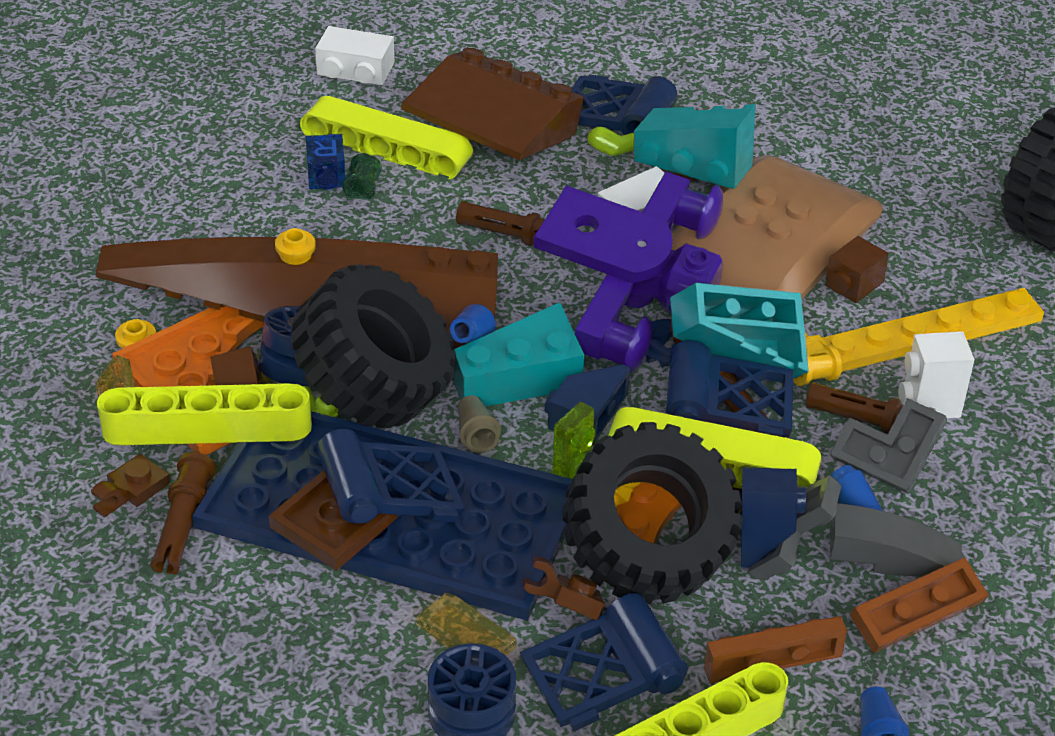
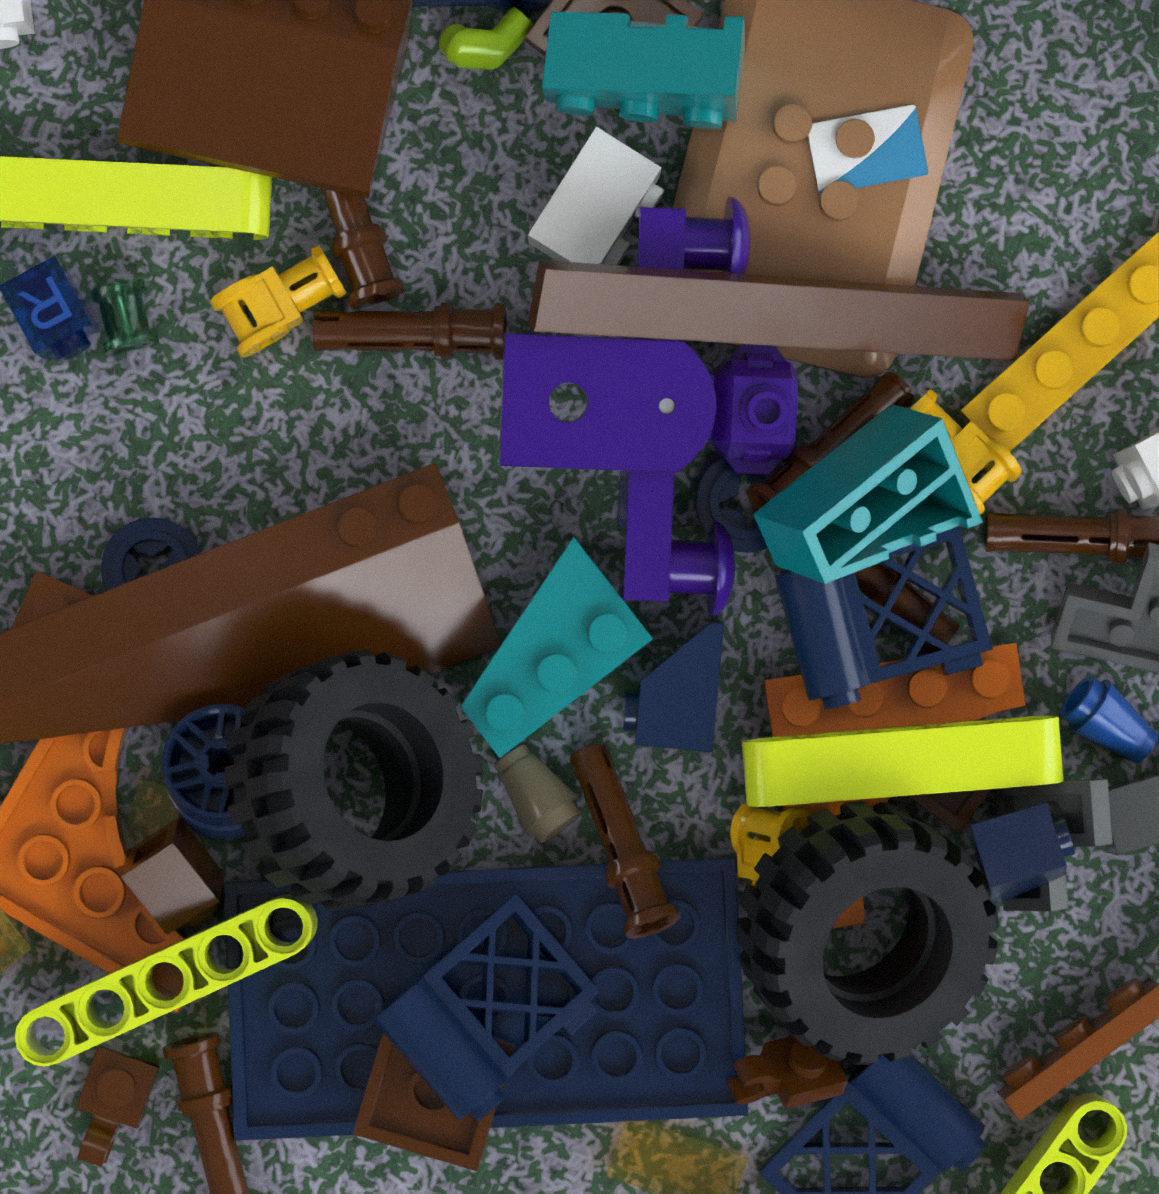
camera: 25 degrees left, 45 degrees up
(295, 246) = (160, 629): yellow plate -> none
(446, 192) = (276, 300): none -> yellow connector
(472, 324) = (463, 641): blue cone -> none
(504, 185) = (361, 250): none -> reddish brown pin
(517, 451) = (631, 867): none -> reddish brown pin
(572, 440) = (707, 824): clear neon green plate -> none
(727, 237) = (775, 311): none -> tile
(820, 217) = (894, 156): none -> sticker
(856, 269) = (980, 232): reddish brown brick -> none

